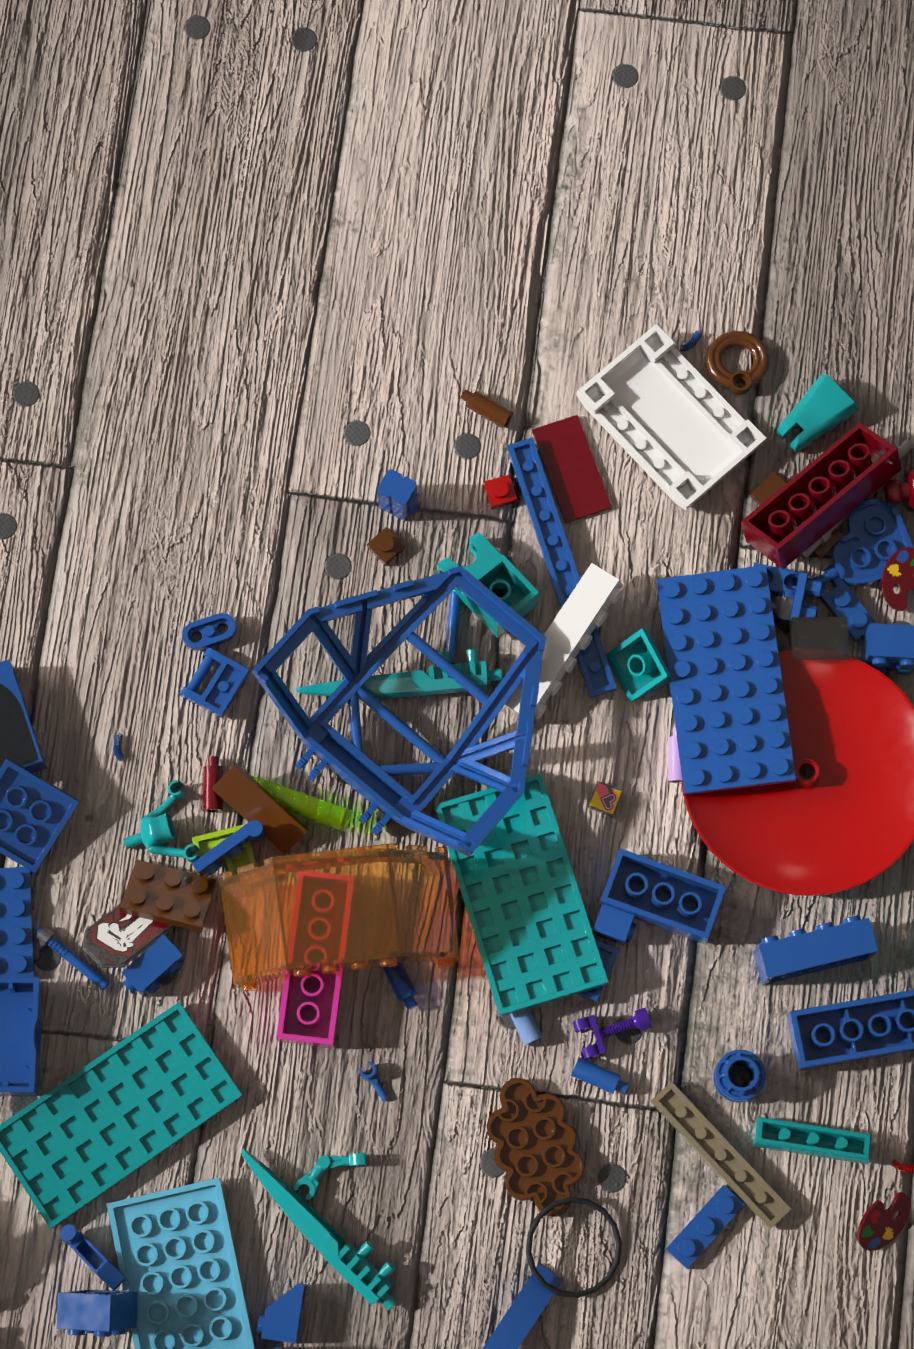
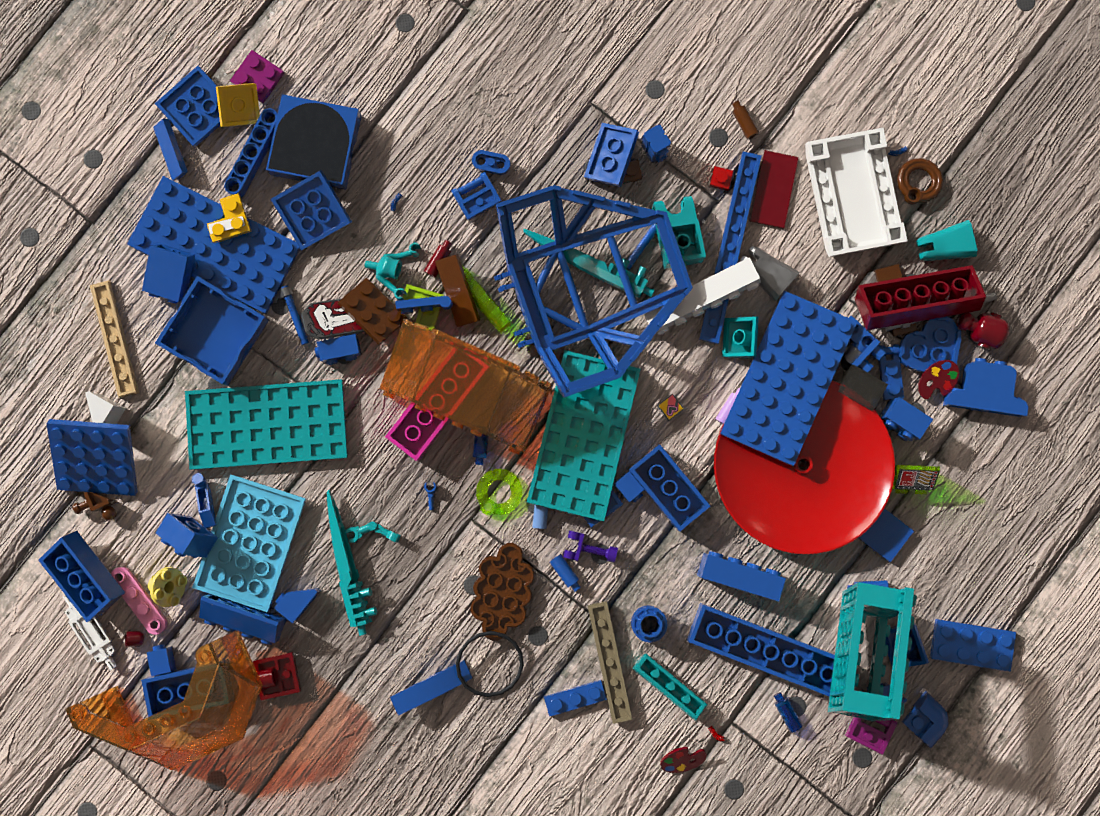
camera: 30 degrees right, 10 degrees up
(351, 538) = (611, 154): none -> plate
(441, 1045) = (482, 491): none -> clear neon green piece
(634, 567) = (774, 274): none -> flat silver piece

